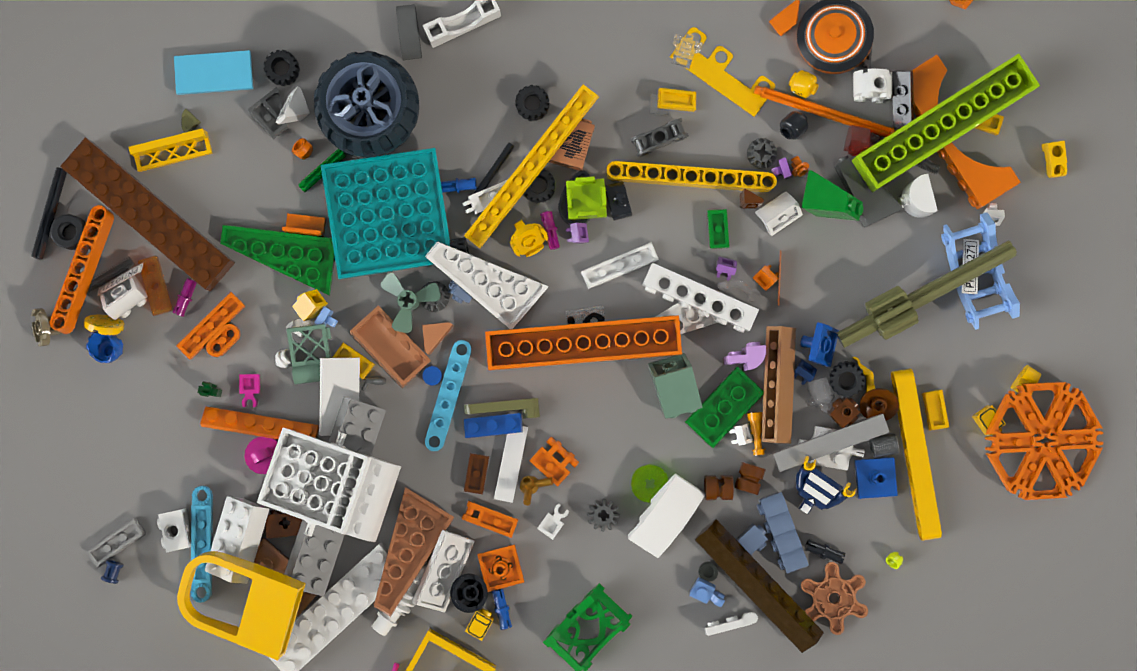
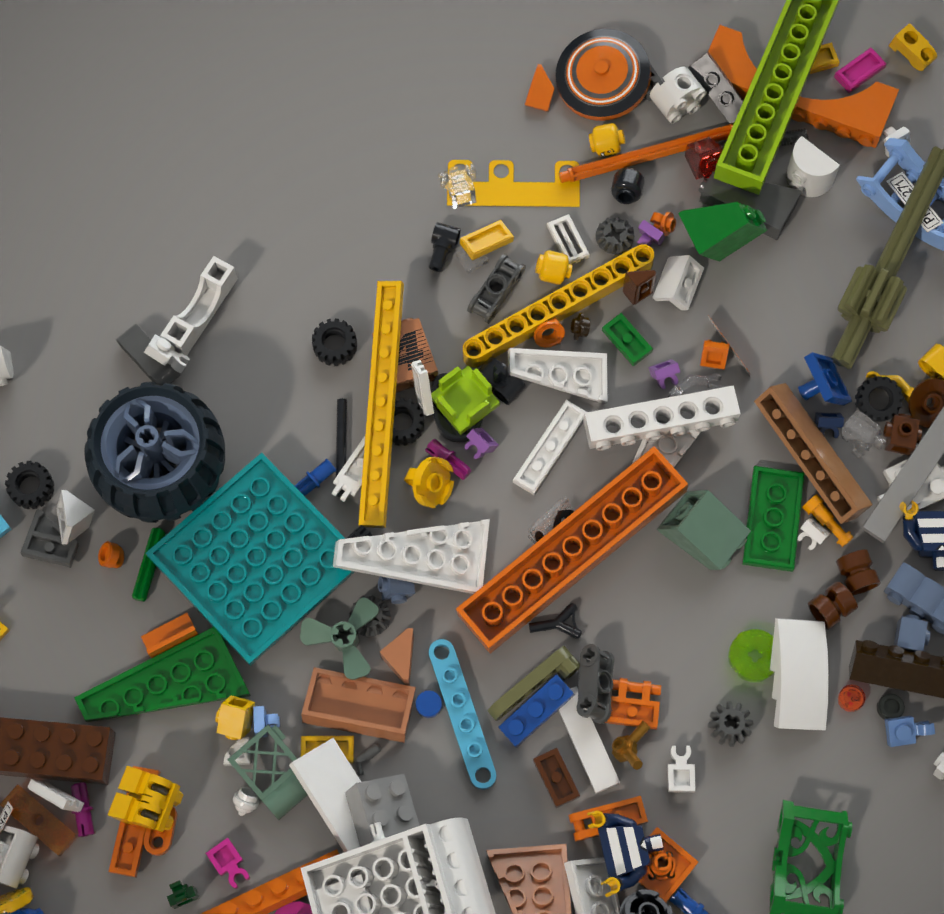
camera: 35 degrees left, 15 degrees down
(172, 279) = (55, 795): none -> white tile
(222, 322) = (148, 800): none -> yellow hips
(418, 38) = (164, 353): none -> white plate
(482, 546) = (624, 849): none -> torso
(538, 435) = (595, 684): none -> dark grey piece
(545, 380) = (558, 623): none -> black piece
(564, 173) = (422, 387): none -> white tile
(649, 81) = (444, 240): none -> black pin
(662, 223) = (567, 371): none -> white wing
(671, 195) = (552, 339): none -> orange piece
(688, 549) = (851, 698): none -> clear red tile
(694, 200) = (580, 326): none -> dark brown plate
(705, 148) = (553, 267): none -> yellow head
(726, 151) = (575, 256): none -> white tile
(750, 356) = (758, 446): lavender brick -> none
(1008, 148) = (860, 70): none -> dark pink tile

